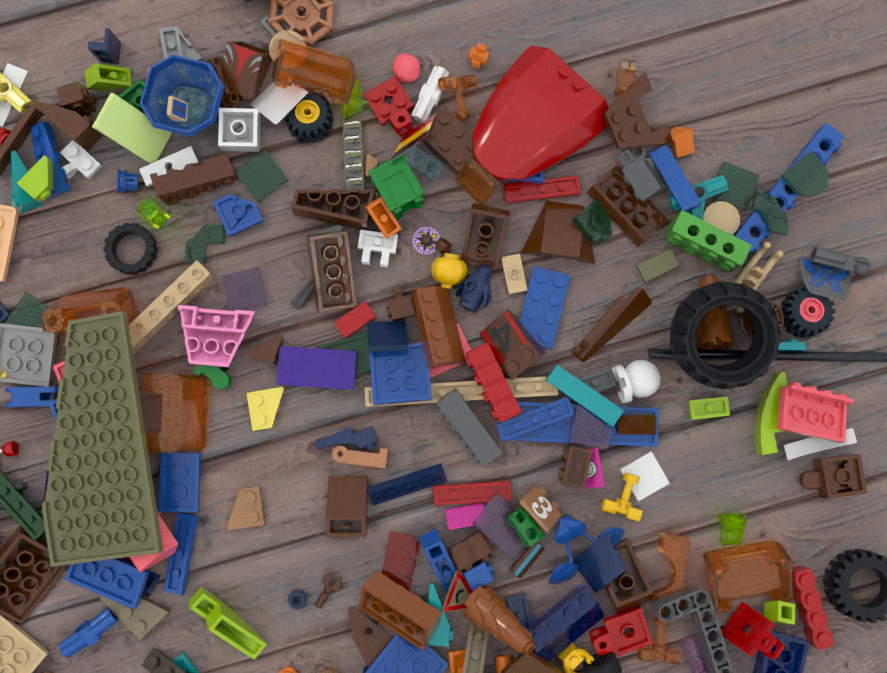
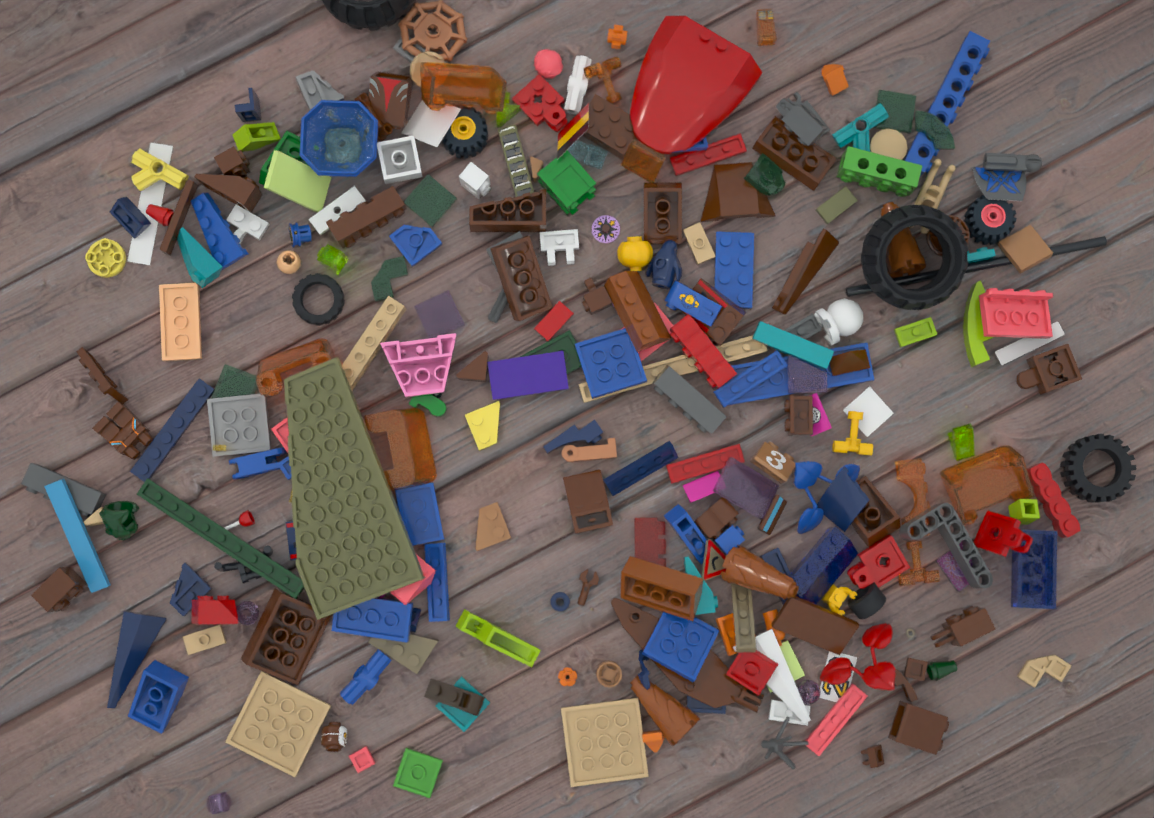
camera: 15 degrees left, 0 degrees up
(39, 180) = (217, 251): lime slope -> none
(109, 206) = (288, 262): none -> light nougat piece
(177, 109) = (340, 153): slope -> none
(307, 165) = (475, 180): none -> white brick
(383, 218) = (560, 215): orange slope -> none
(387, 336) = (589, 329): dark blue tile -> none
(442, 245) = (623, 230): reddish brown plate -> none
(493, 332) = (692, 303): none -> blue door
(525, 527) = (763, 483): green leg -> none
(628, 122) = (777, 70): reddish brown wing -> none
(675, 179) = (835, 117): blue tile -> none
(807, 176) = (962, 87): clear green tile -> none
(835, 349) = (1025, 249): none -> medium nougat tile

